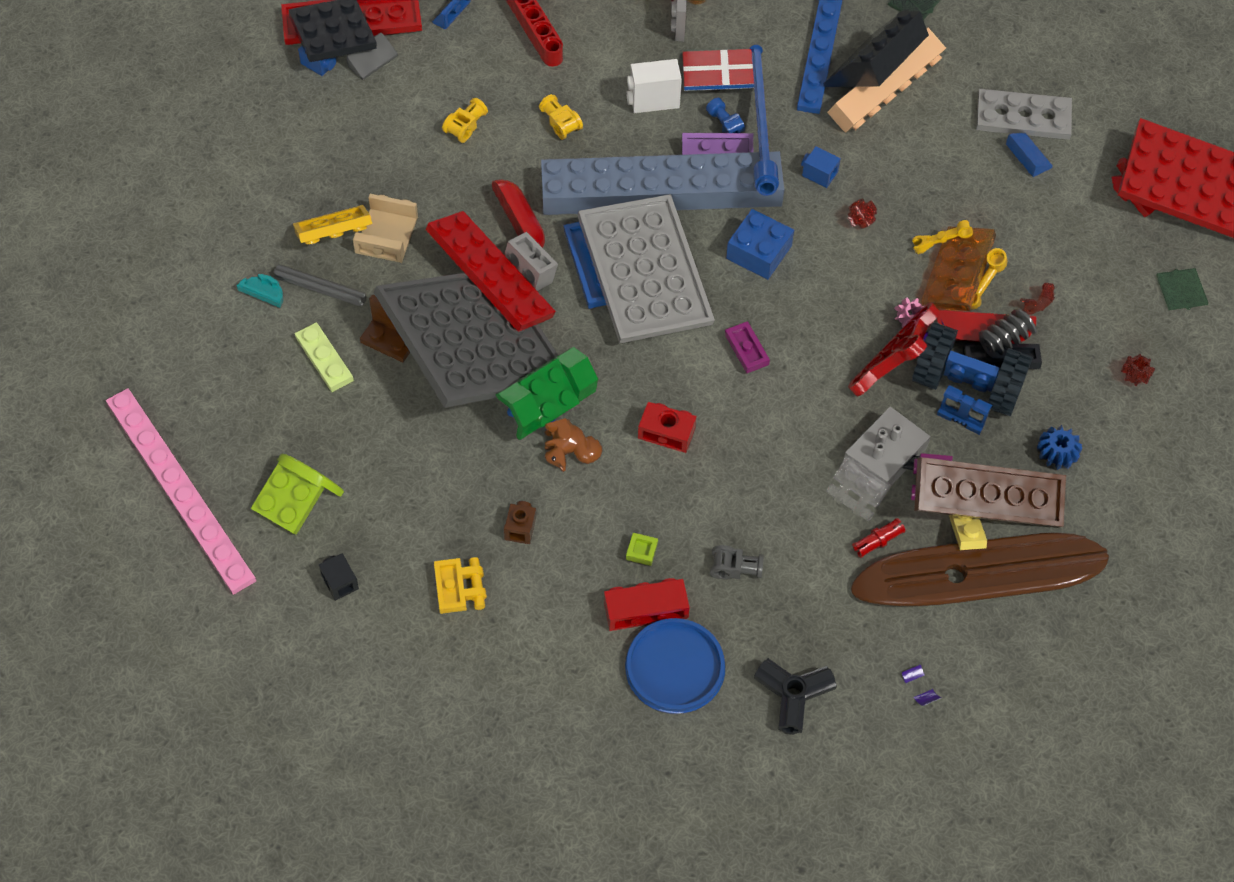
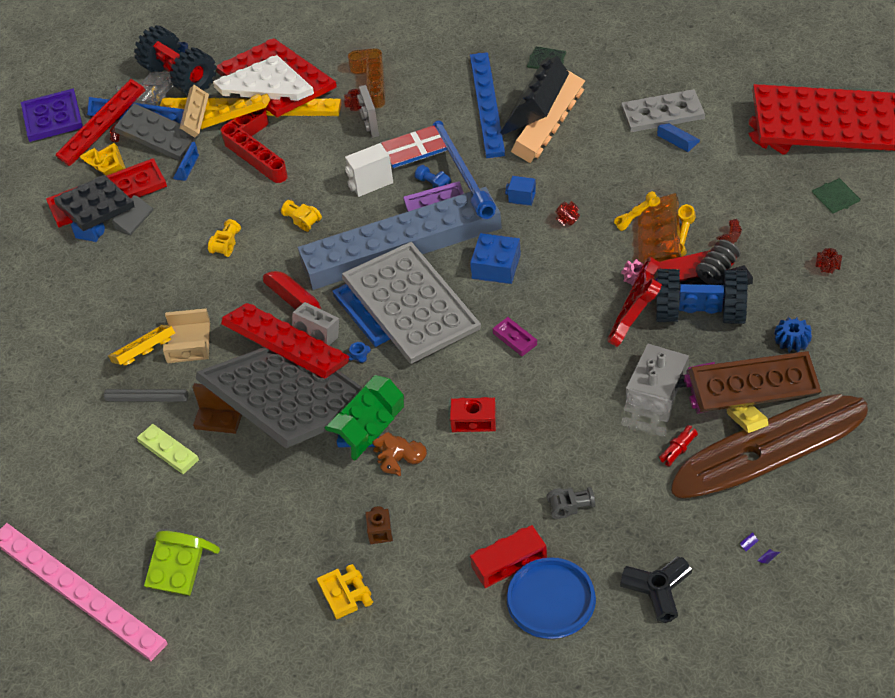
camera: 10 degrees left, 10 degrees down
(262, 288) = (98, 411): teal plate -> none
(338, 576) = (238, 616): black brick -> none
(568, 303) = (354, 353): none -> blue plate
(642, 549) = (488, 514): lime plate -> none
(962, 415) = (706, 334): blue piece -> none

